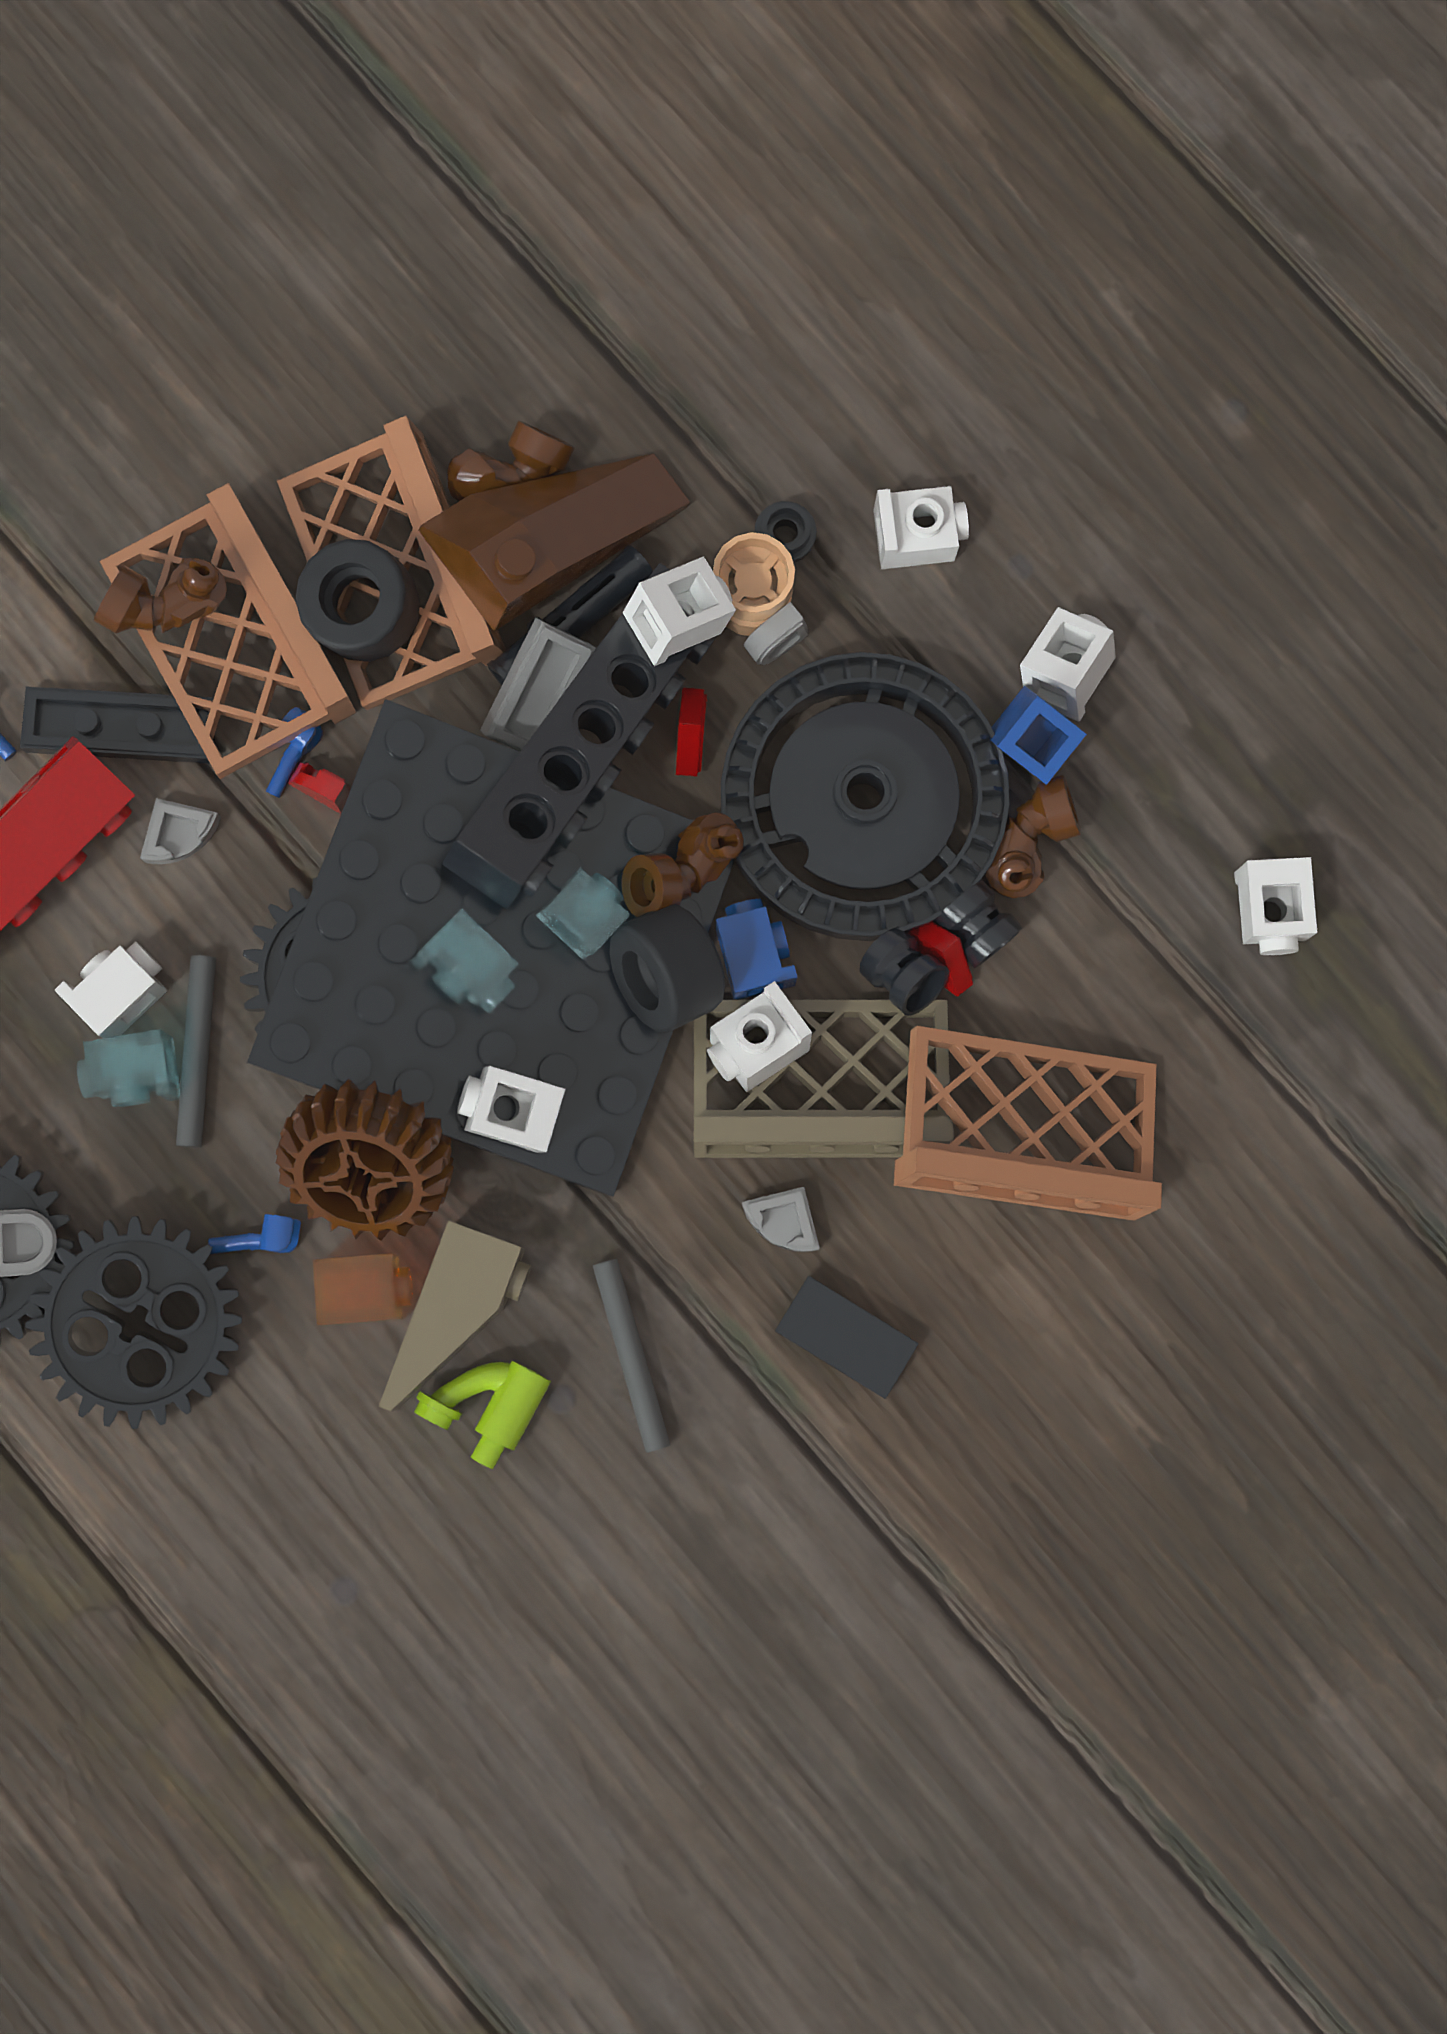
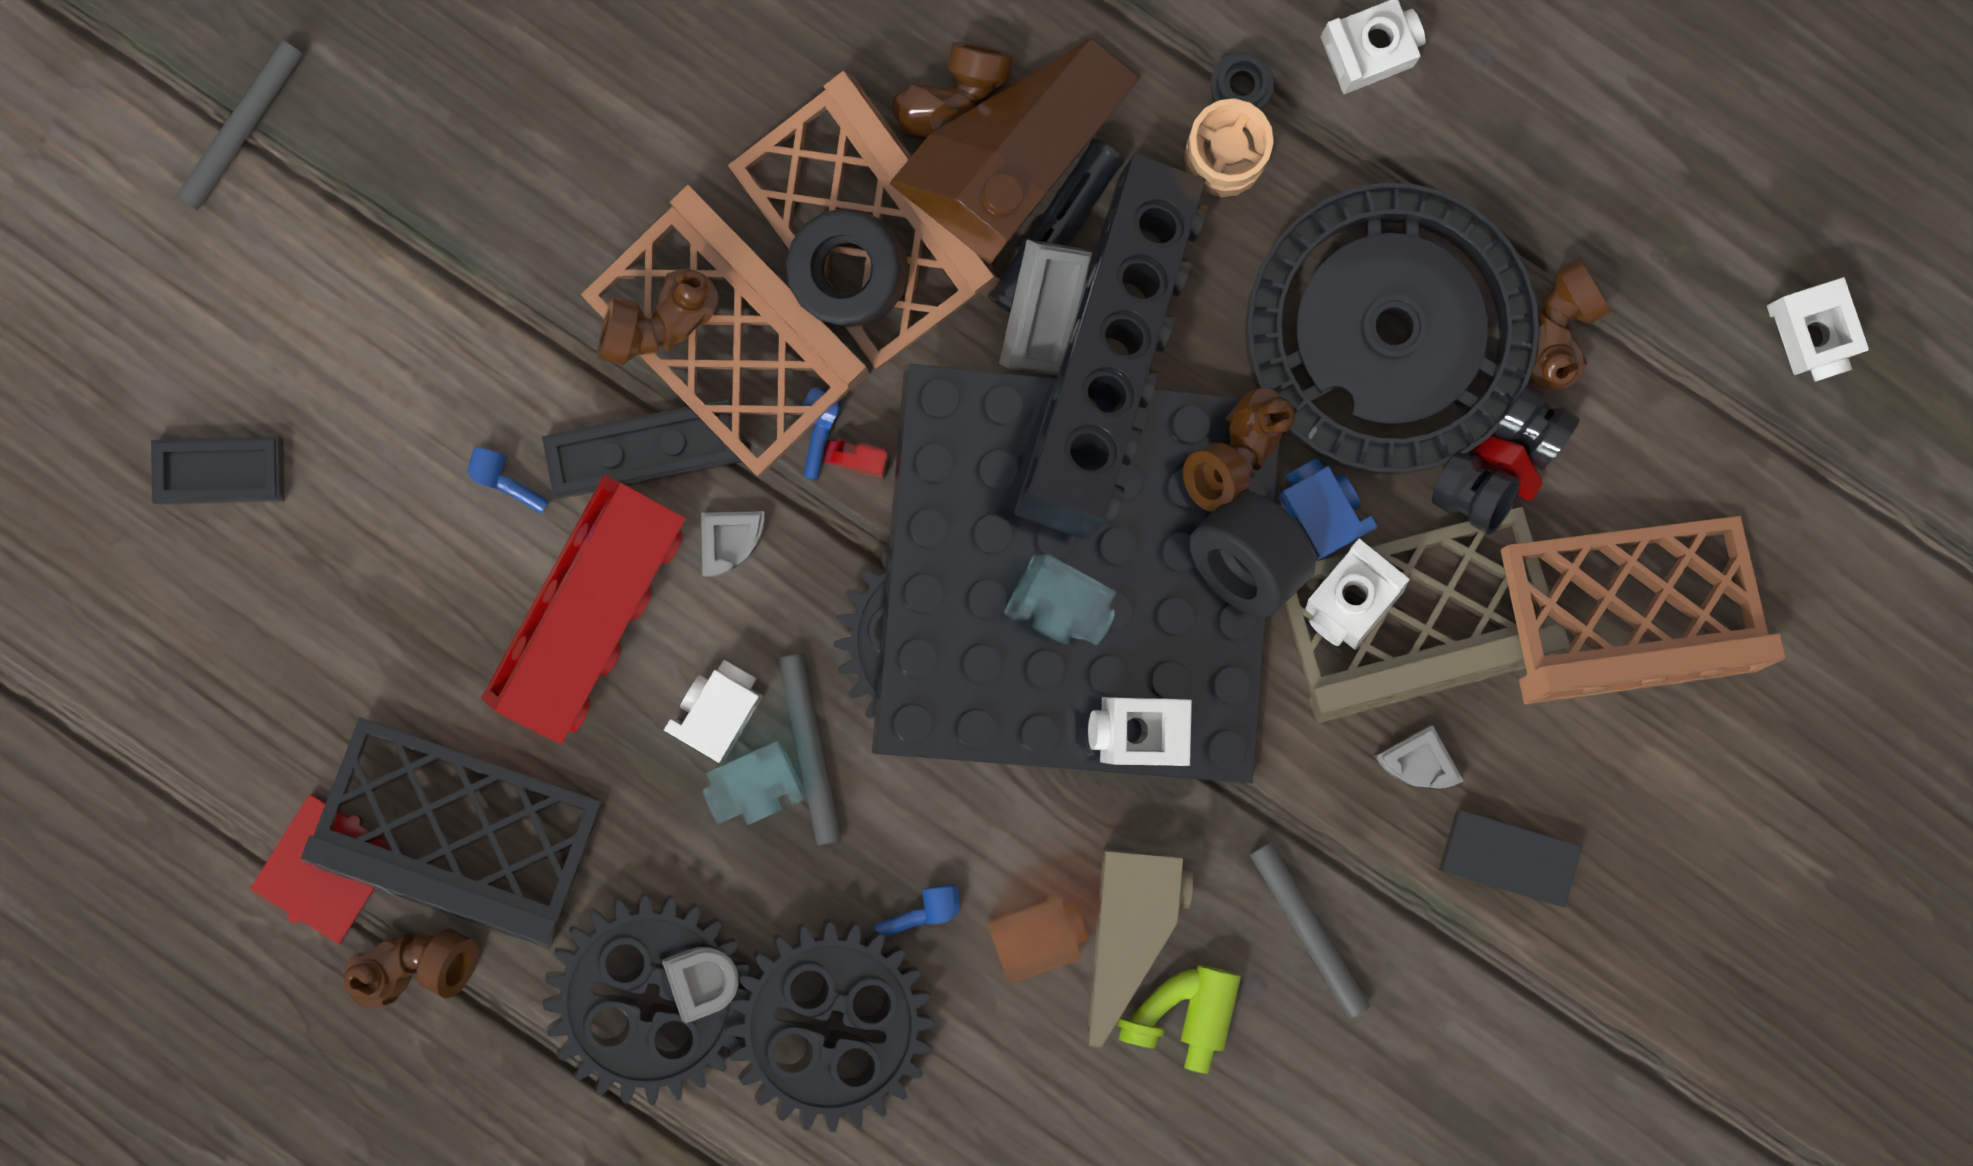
camera: 10 degrees left, 5 degrees up
(365, 1160) = (1011, 815): reddish brown gear -> none
(584, 912) = (1160, 521): clear light blue brick -> none
(679, 609) = (1172, 199): white brick -> none
(691, 732) = (1204, 309): red tile -> none
(777, 635) = (1263, 192): light grey tile -> none
(1036, 735) = (1545, 225): blue brick -> none
(1068, 661) = (1553, 166): white brick -> none

